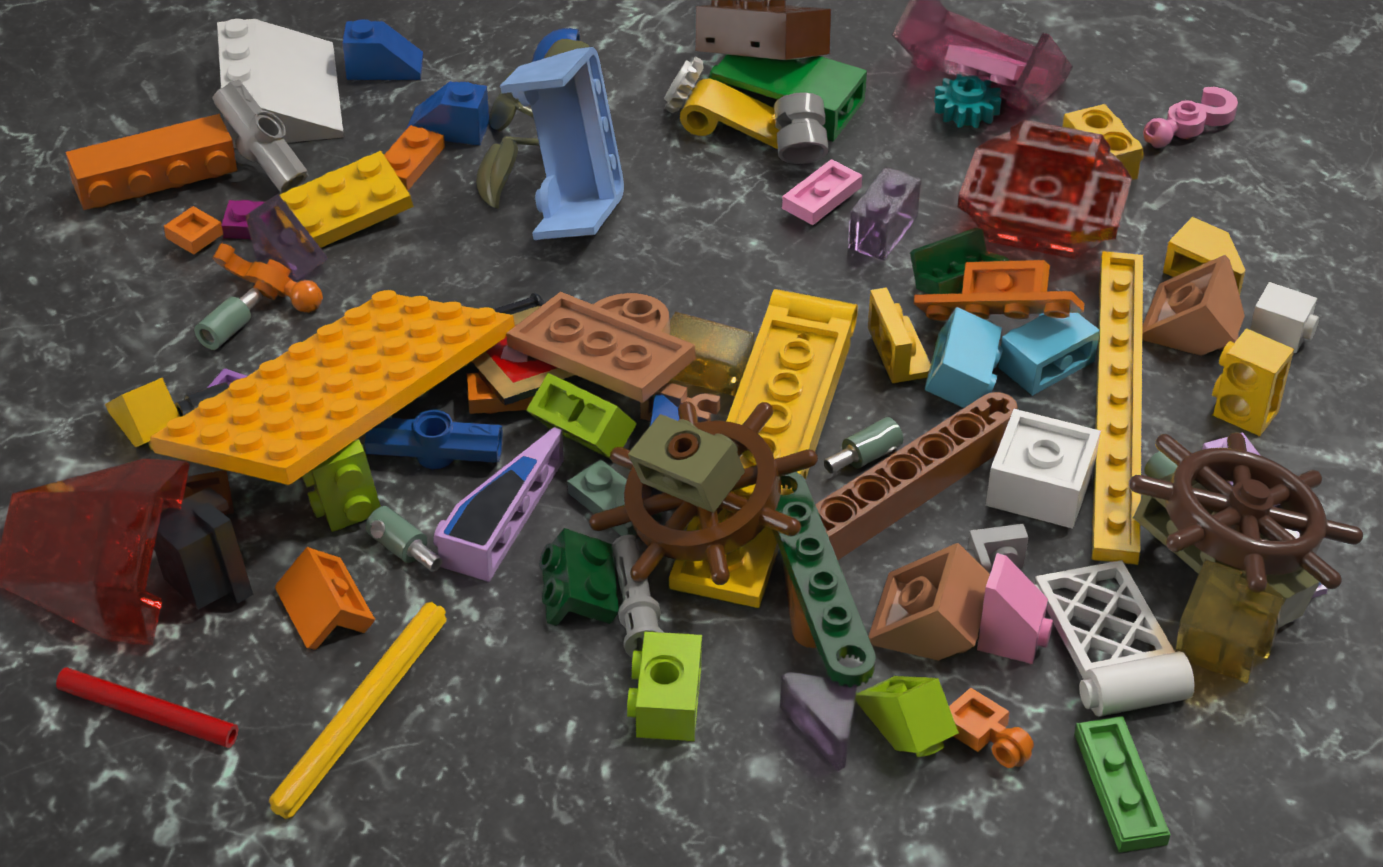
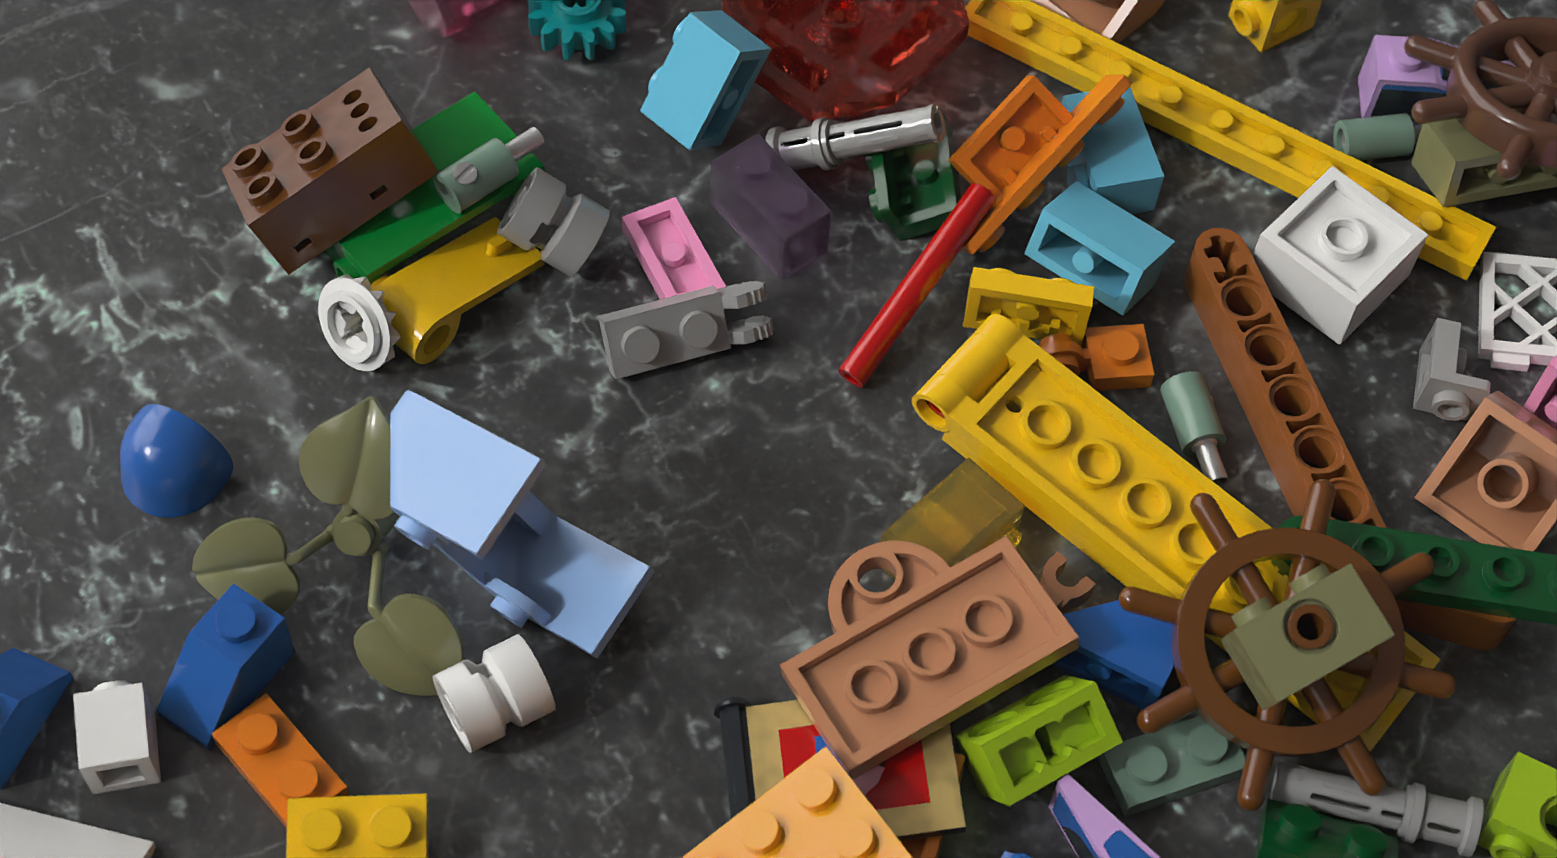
camera: 70 degrees left, 15 degrees up
(388, 94) = (116, 737): none -> white brick
(489, 206) = (493, 693): none -> white wheel
(771, 206) = (681, 328): none -> light grey hinge
(801, 79) = (484, 170): none -> sand green piece
(860, 287) = (916, 285): none -> red piece
(888, 398) = (1110, 354): none -> orange plate
(947, 149) = (704, 79): none -> medium azure brick
(947, 218) = (828, 143): none -> light grey pin

